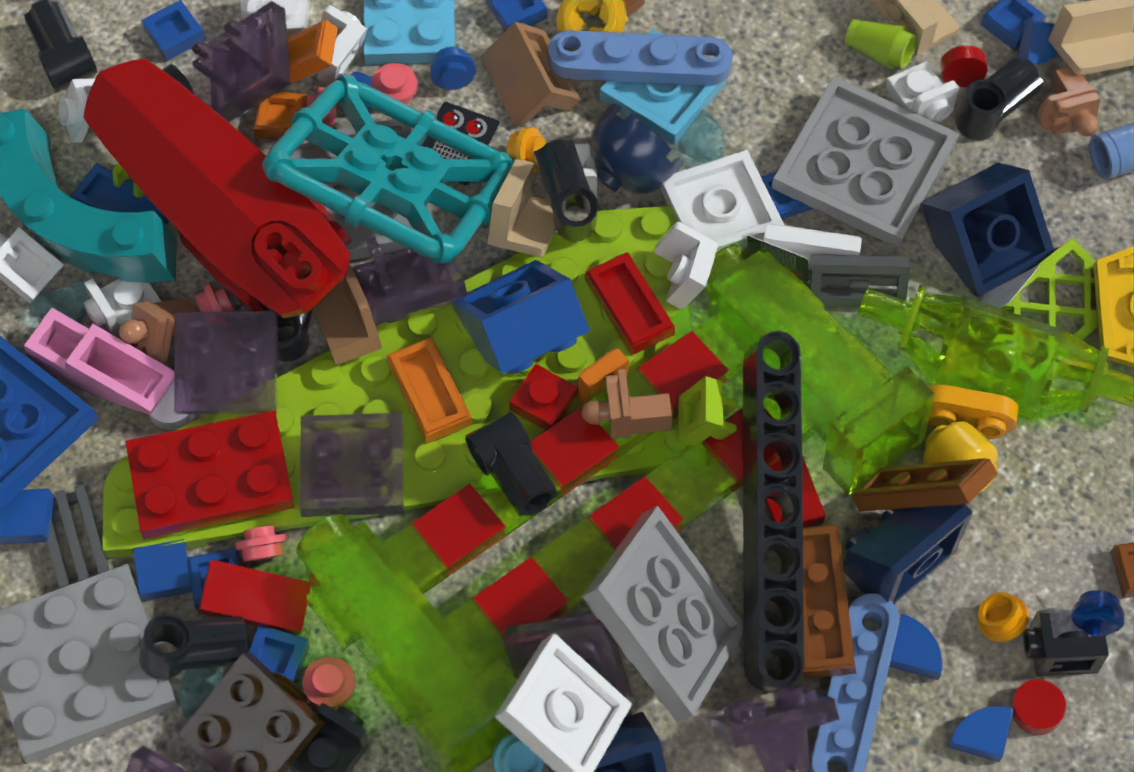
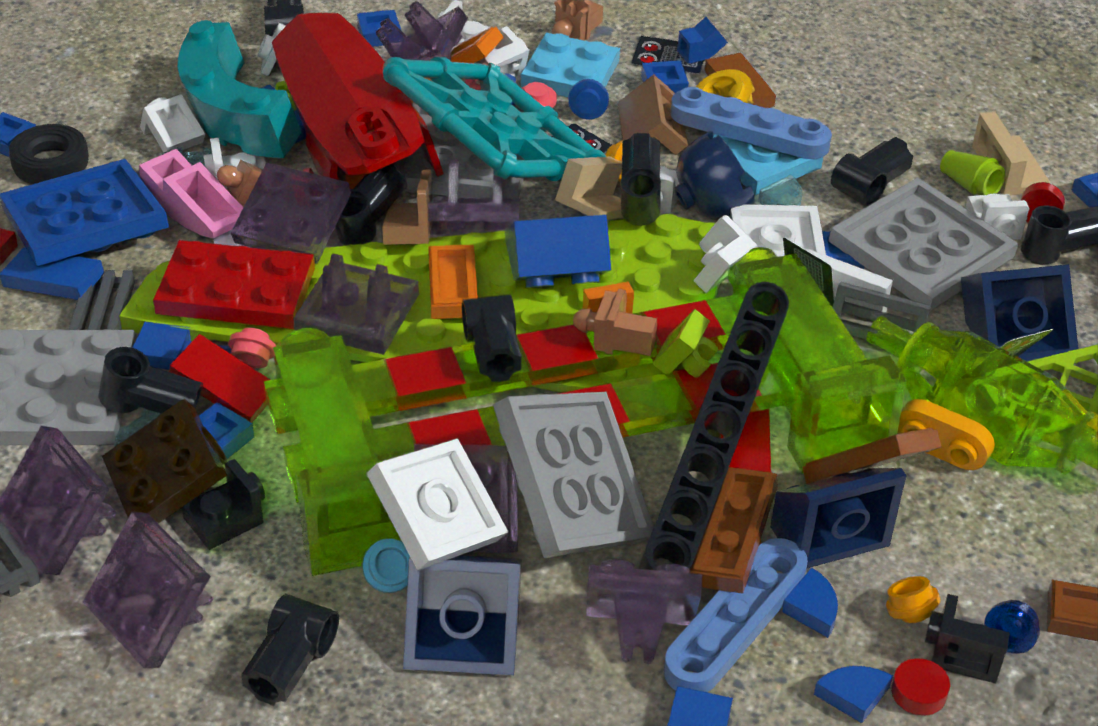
camera: 20 degrees right, 20 degrees down
(329, 682) = (256, 457): coral plate -> none
(543, 397) = (547, 309): red plate -> none
(629, 303) = (659, 272): red tile -> none
(780, 81) = (868, 175): none -> black piece
(957, 443) = (928, 474): yellow head -> none

